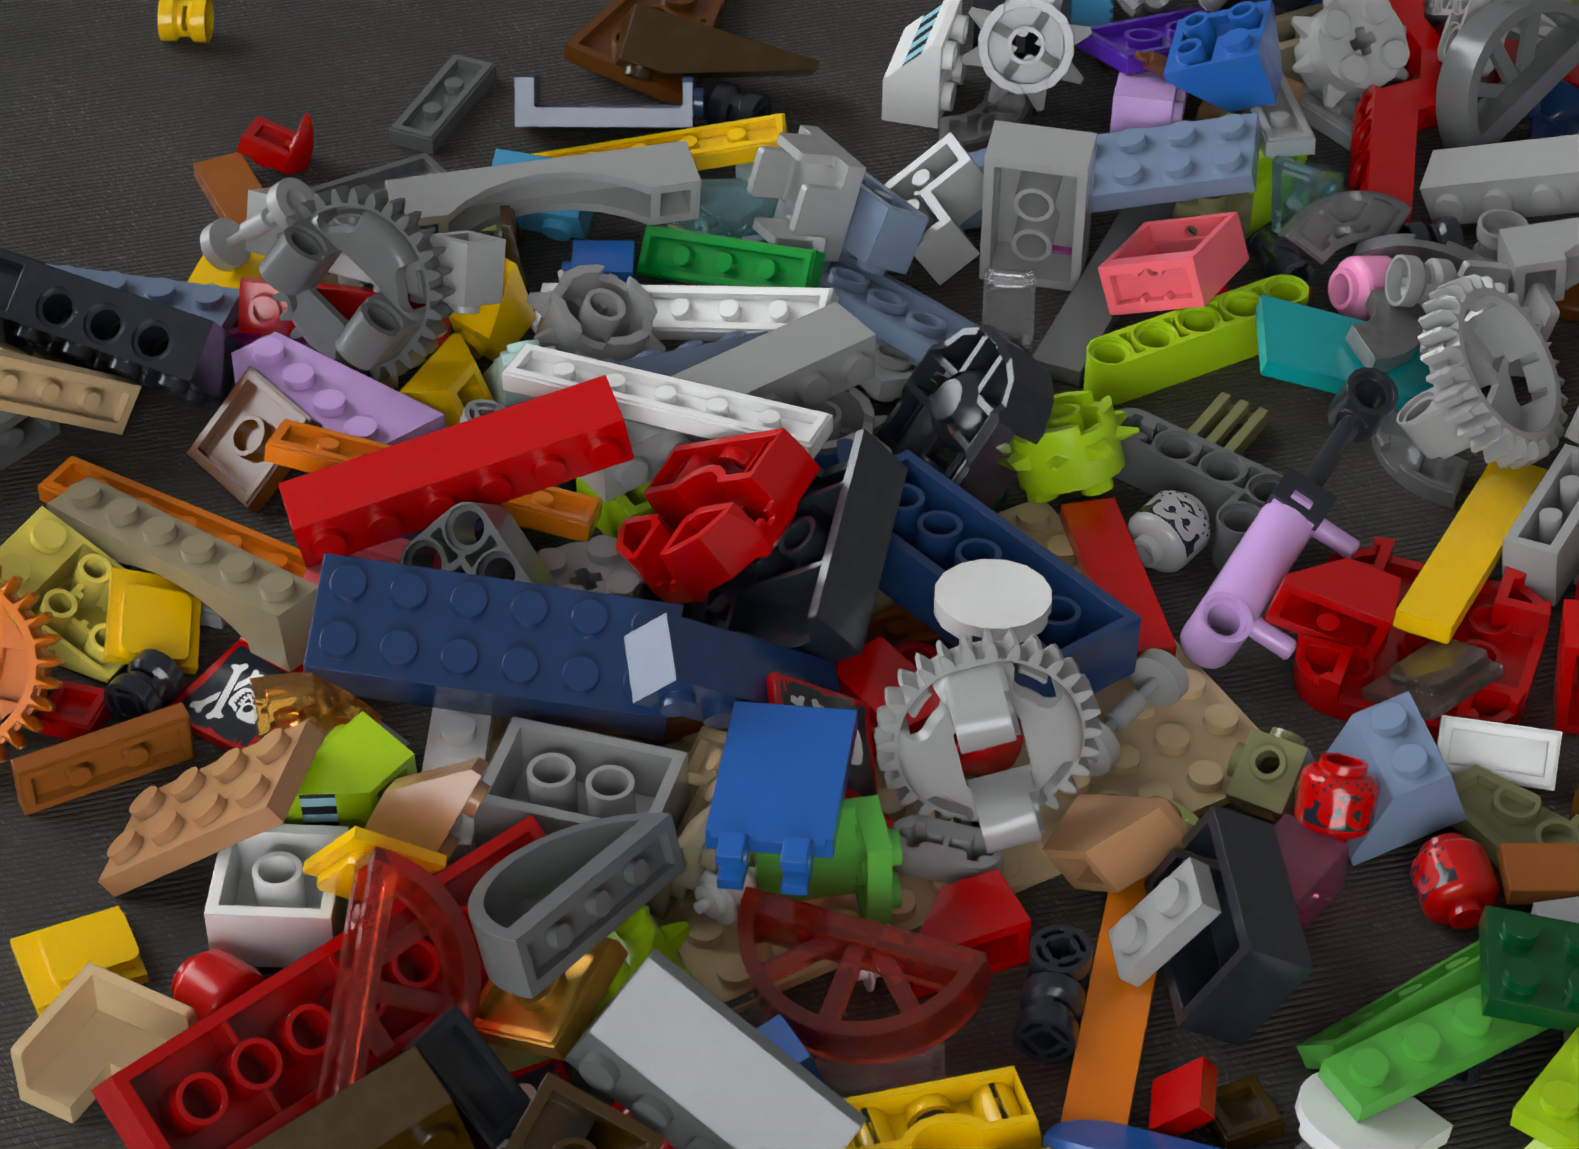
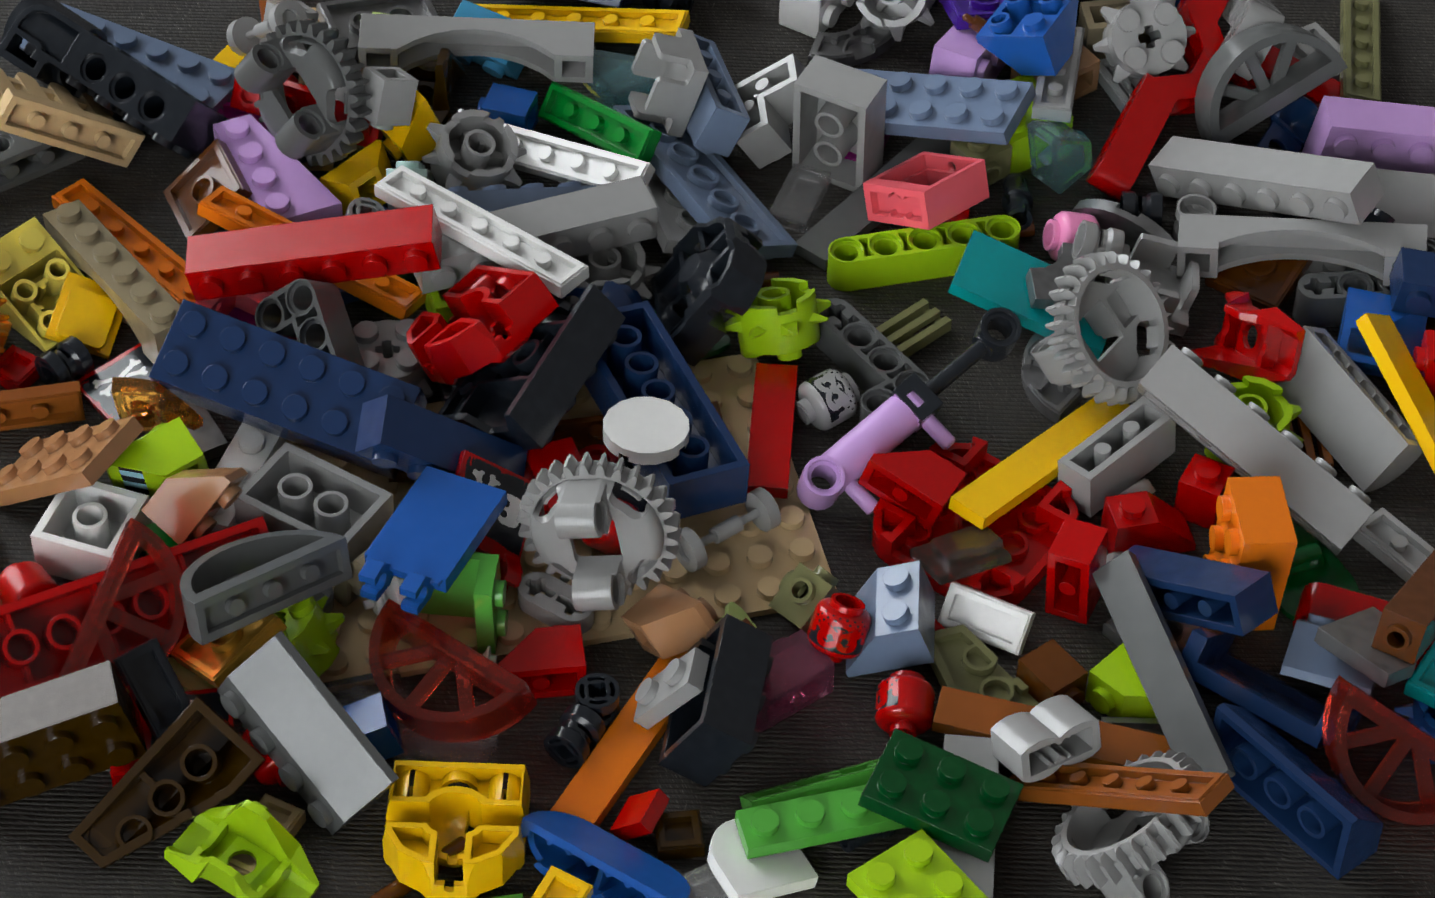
camera: 15 degrees right, 5 degrees up
(336, 861) = (167, 531): yellow piece -> none
(1343, 220) = (1072, 180): flat silver tile -> none

